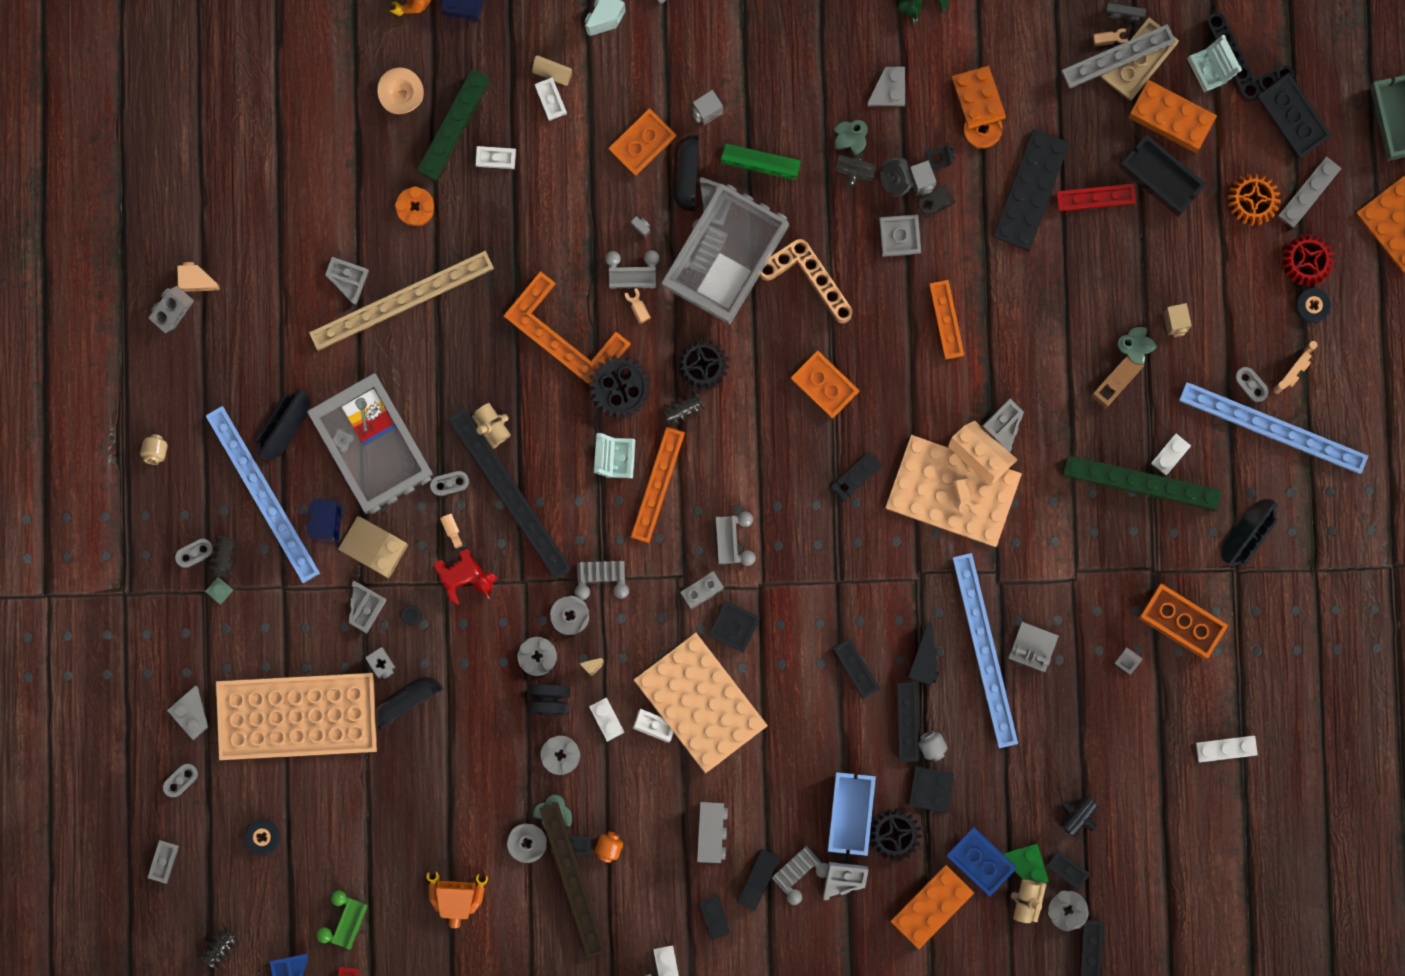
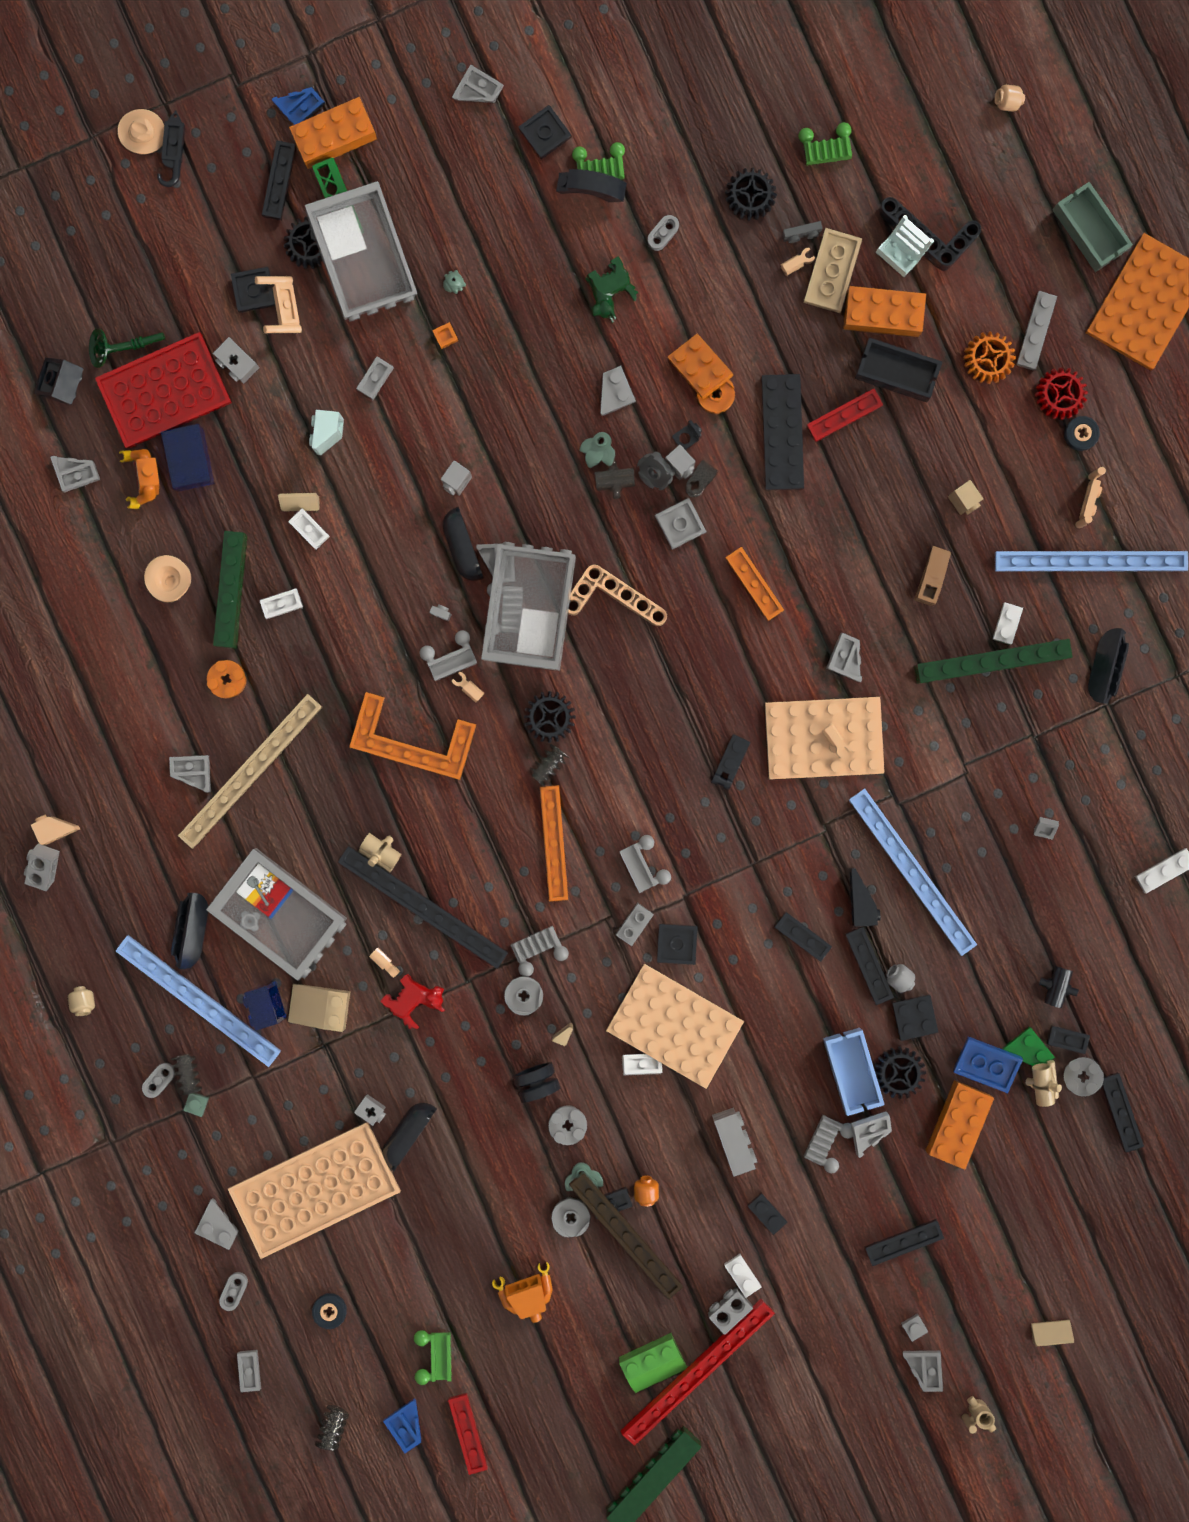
camera: 25 degrees left, 5 degrees up
(364, 607) = (334, 1064): light grey wing -> none
(411, 615) = (379, 1054): black tile -> none
(449, 482) = (364, 920): light grey plate -> none
(530, 665) = (507, 1055): light grey plate -> none
(604, 394) = (492, 755): black gear -> none
(606, 719) = (596, 1075): white plate -> none
(614, 456) = (504, 835): light aqua plate -> none
(642, 142) = (409, 534): orange plate -> none
(758, 880) = (793, 1165): black slope -> none
(760, 162) = (525, 507): green fence -> none
(825, 384) = (668, 689): orange plate -> none
(981, 452) = (837, 692): light nougat slope -> none
(1033, 647) = (955, 850): light grey hinge -> none
(1118, 56) = (813, 275): light grey plate -> none
(1139, 344) = (939, 535): sand green plate -> none
(1183, 621) = (1082, 772): orange brick -> none
(1252, 384) = (1055, 529): light grey plate -> none
(1293, 115) = (995, 264): black plate -> none

